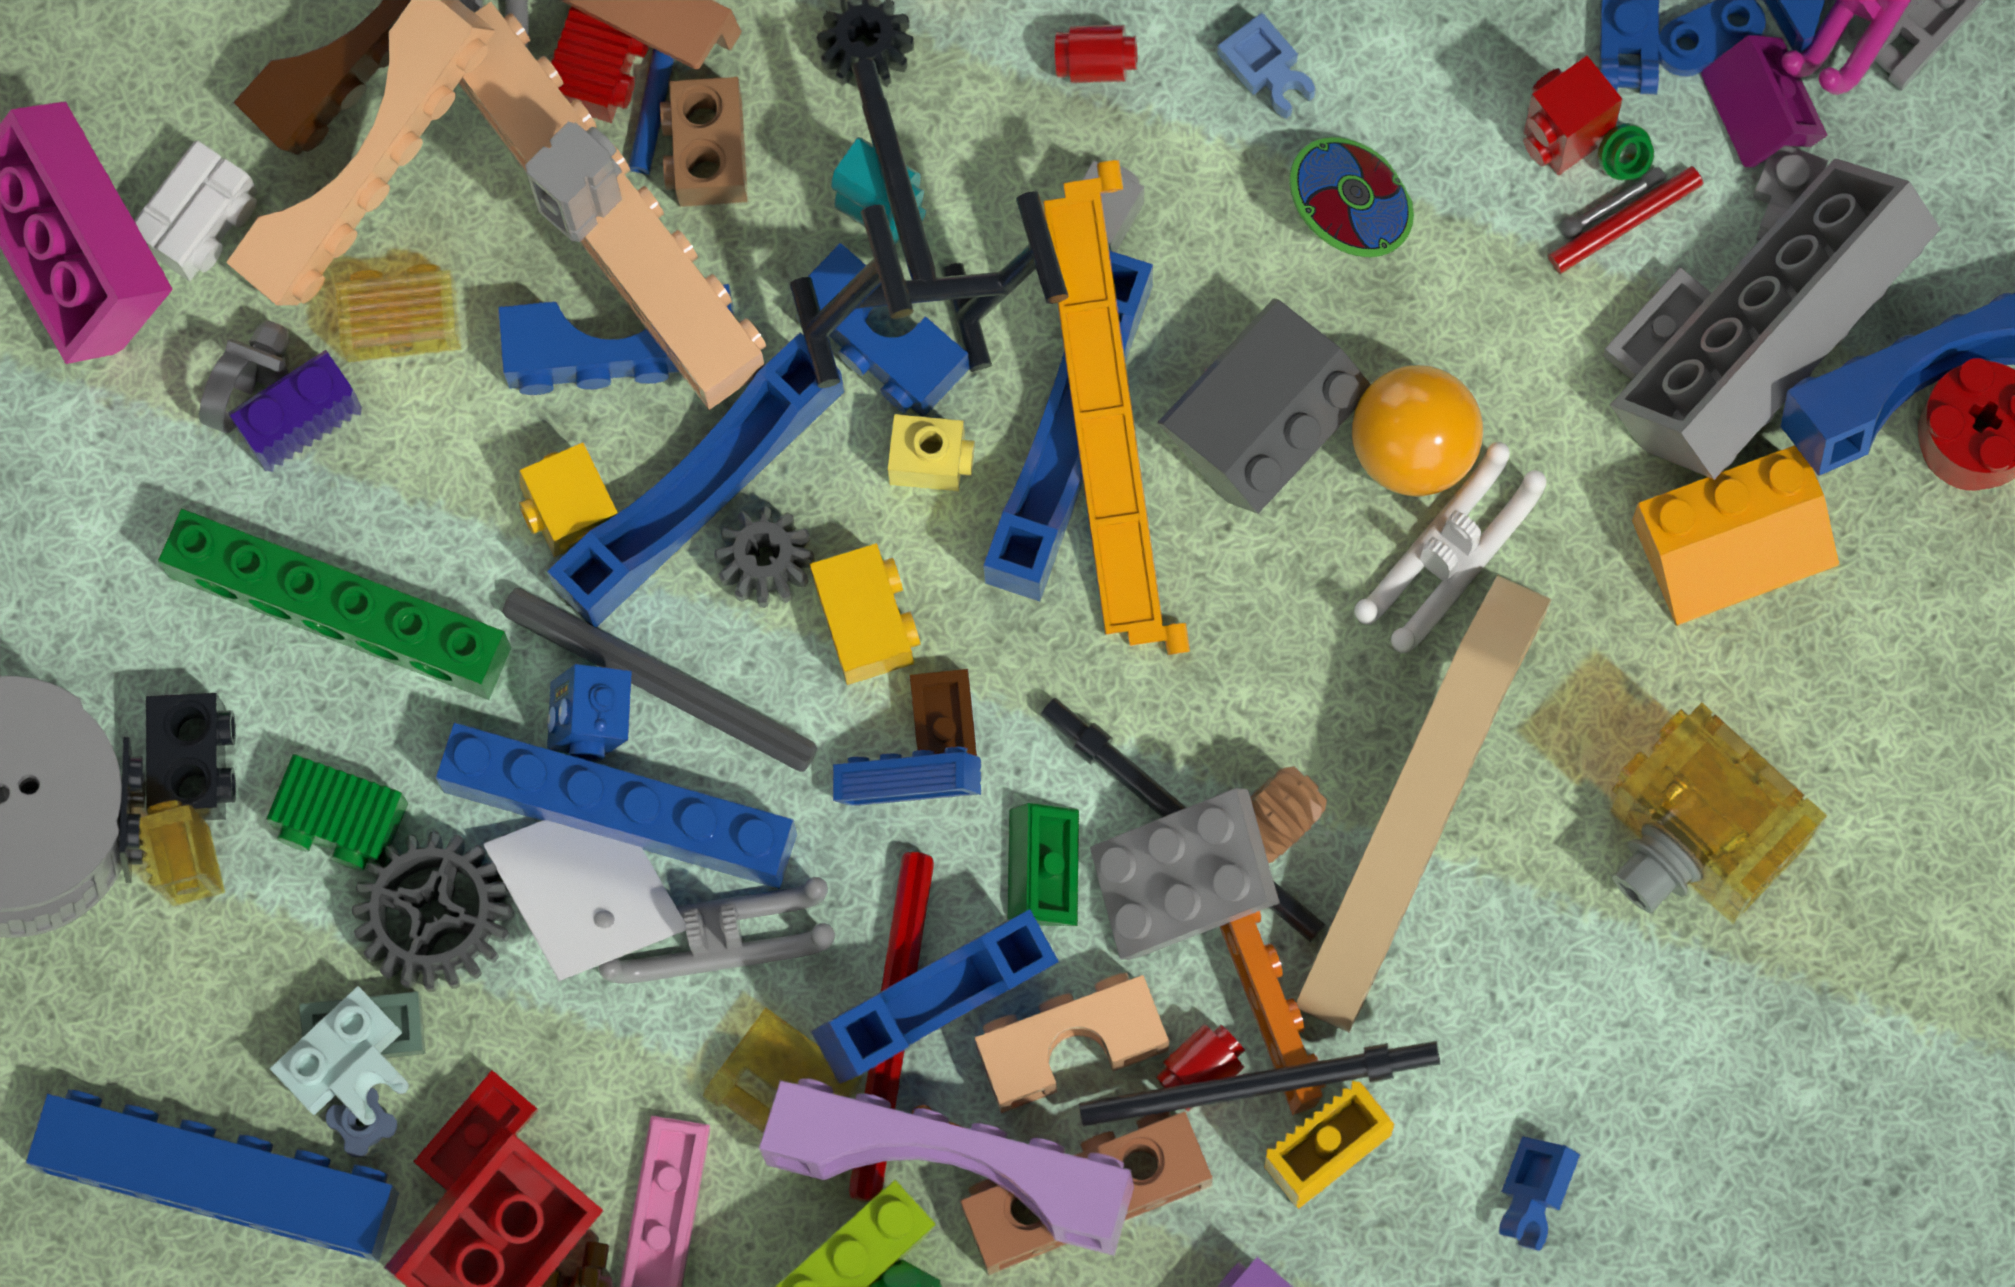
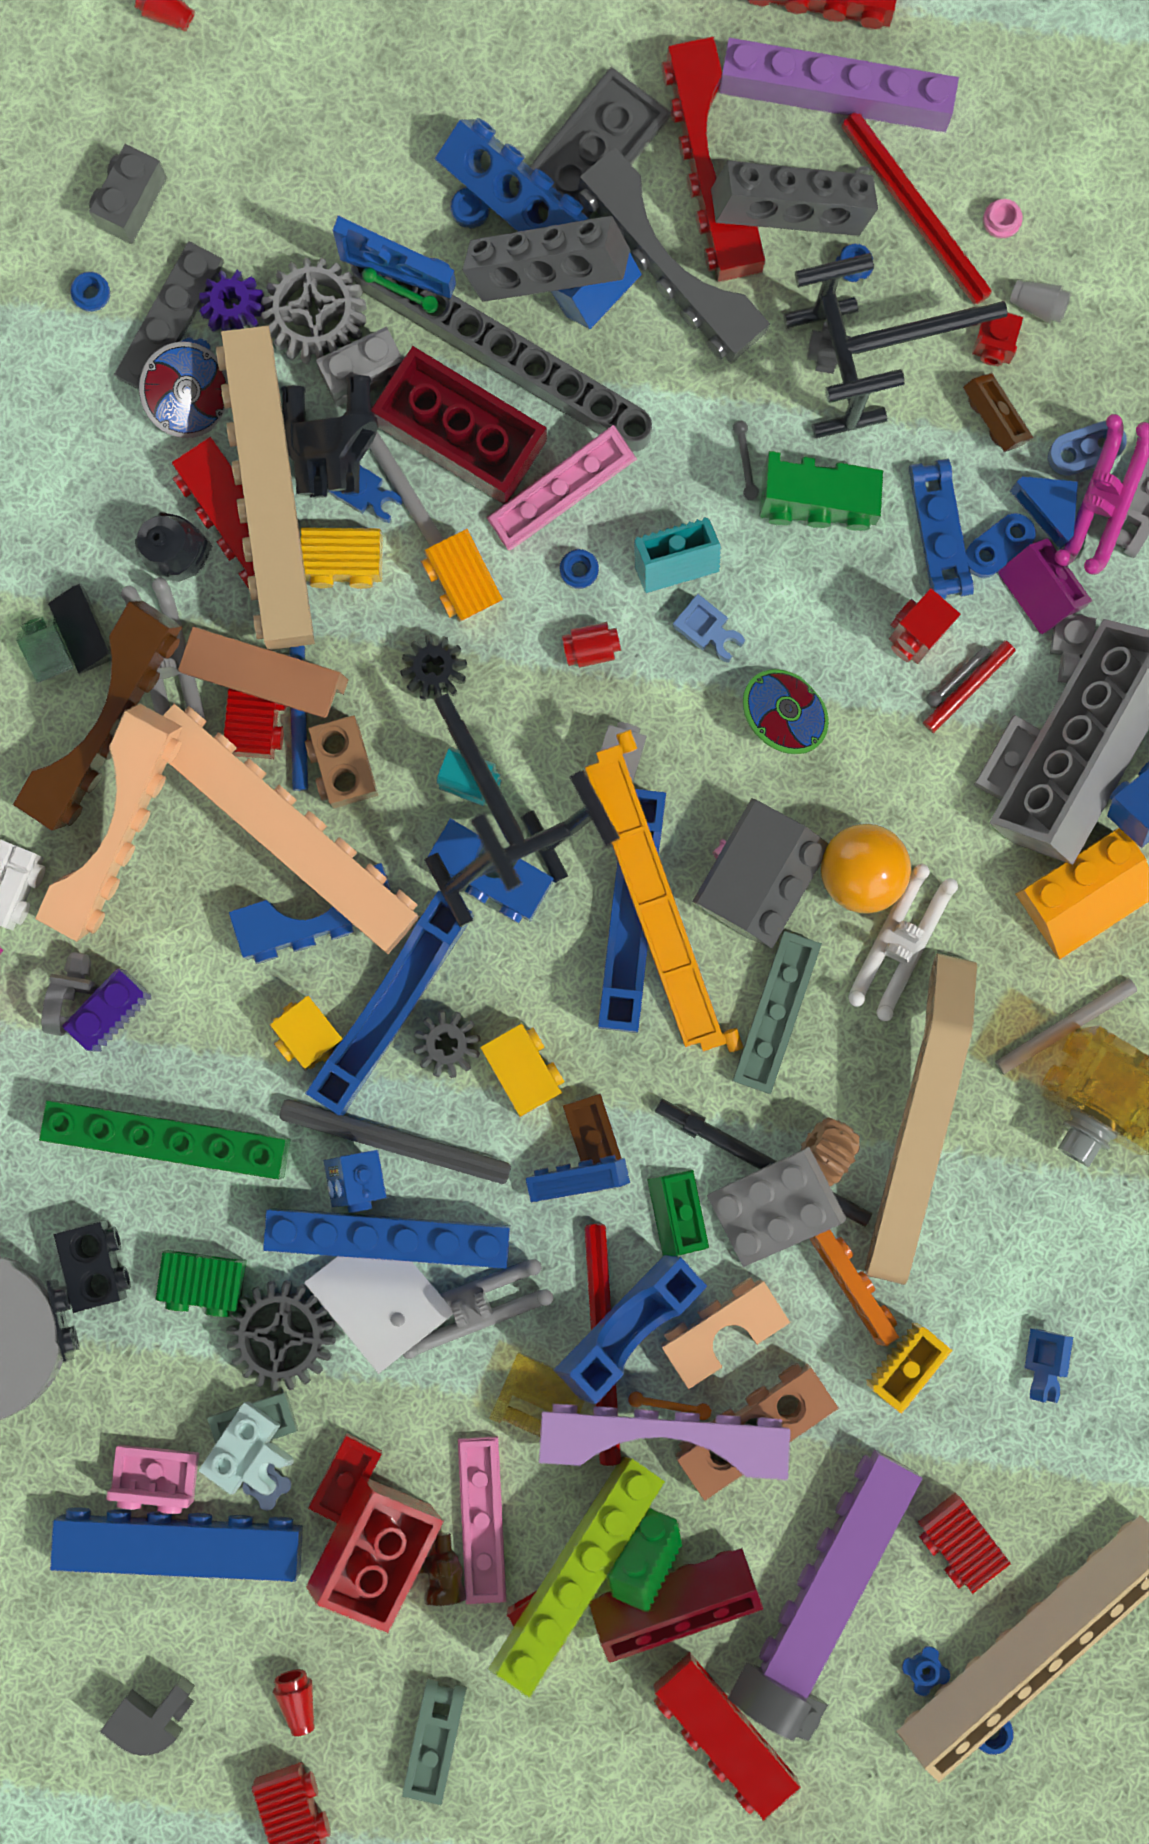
camera: 20 degrees left, 10 degrees up
(179, 854) = (102, 1338): clear yellow brick -> none
(203, 1071) = (153, 1478): none -> bright pink bracket
(398, 313) = (160, 927): clear yellow brick -> none
(575, 179) = (264, 826): light grey brick -> none
(929, 453) = (541, 949): light yellow brick -> none
(1203, 1058) = (812, 1329): red brick -> none
(1247, 611) = (777, 1012): none -> sand green plate
(1376, 1062) = (931, 1312): black bar -> none
(1637, 156) = (961, 641): green plate -> none
(1650, 724) = (1066, 1026): none -> light grey bar

